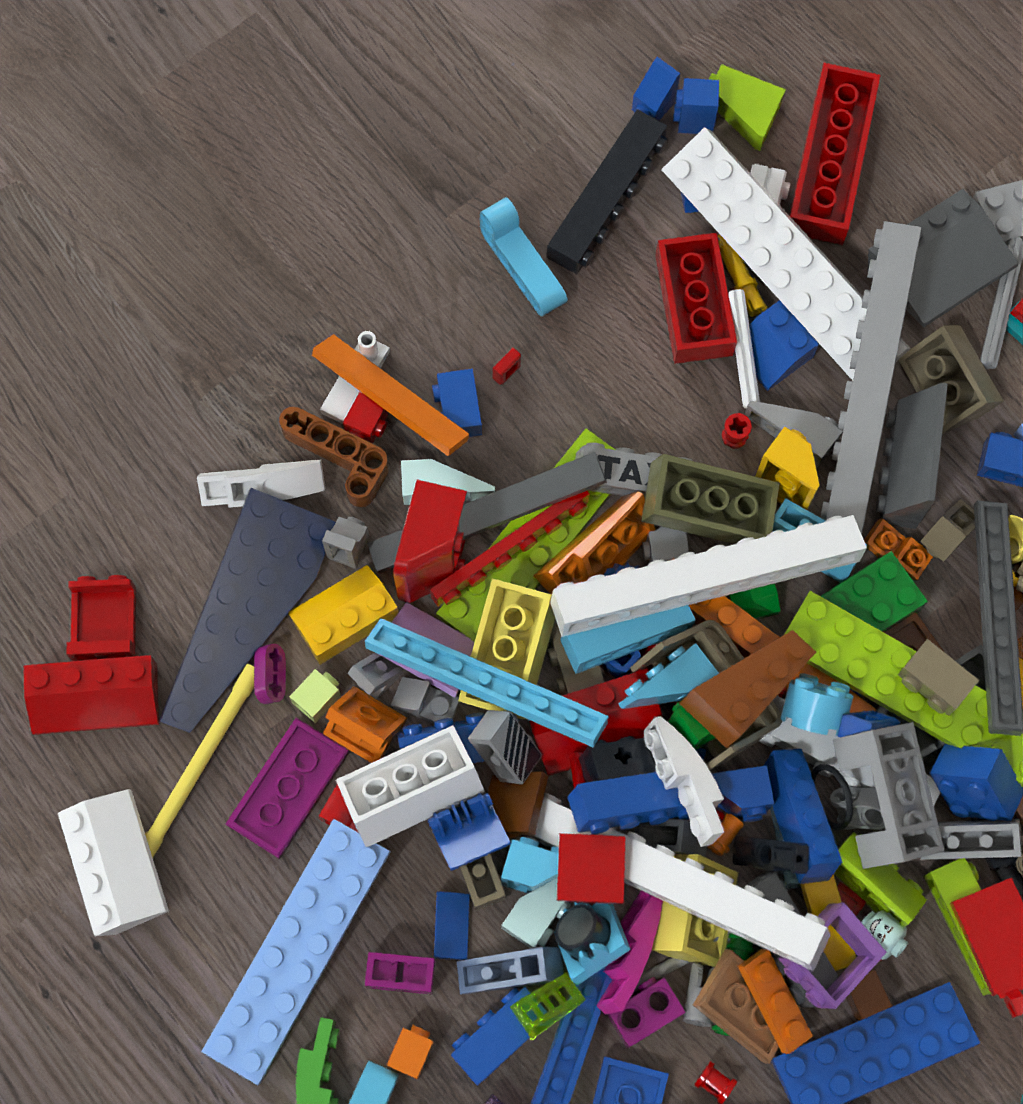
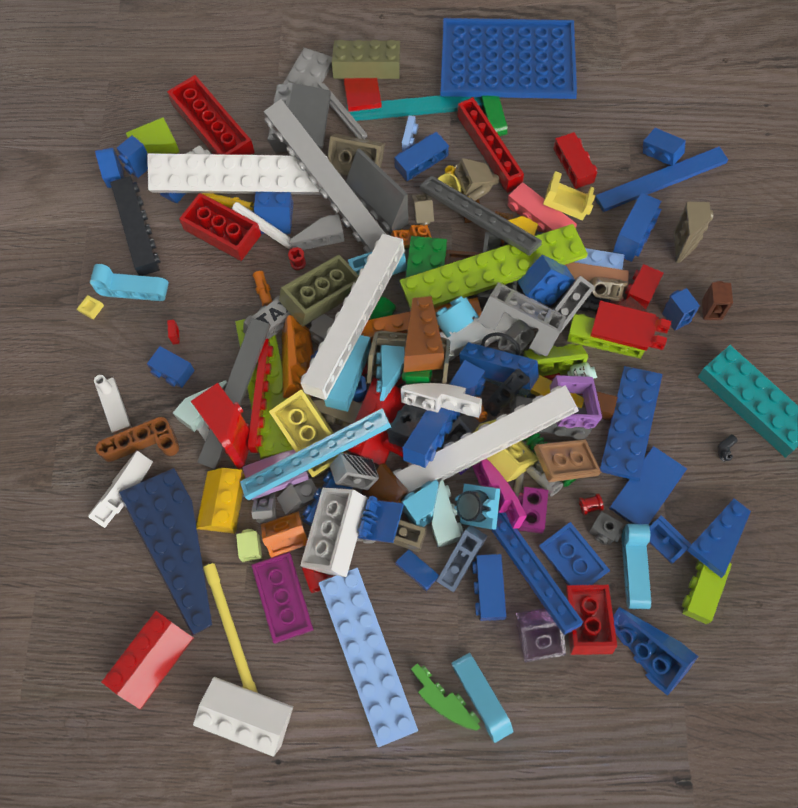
camera: 45 degrees left, 5 degrees down
(102, 618) = (113, 622): red panel -> none
(270, 674) = (218, 560): magenta beam -> none
(346, 541) = (187, 471): light grey arch -> none
(366, 419) = (136, 413): red brick -> none
(390, 395) = (136, 392): orange tile -> none
(400, 973) = (421, 611): magenta brick -> none
(411, 1051) = (463, 637): orange brick -> none
(456, 237) = (90, 307): none -> light yellow tile
(531, 1001) = (501, 564): clear neon green slope -> none
(591, 868) = (447, 475): red tile -> none
(658, 424) = (262, 288): none -> orange pin
(775, 1001) = (574, 445): orange plate -> none
(793, 466) = (337, 241): yellow slope -> none
(864, 721) = (479, 304): blue slope -> none
(937, 678) = (487, 255): dark tan brick -> none

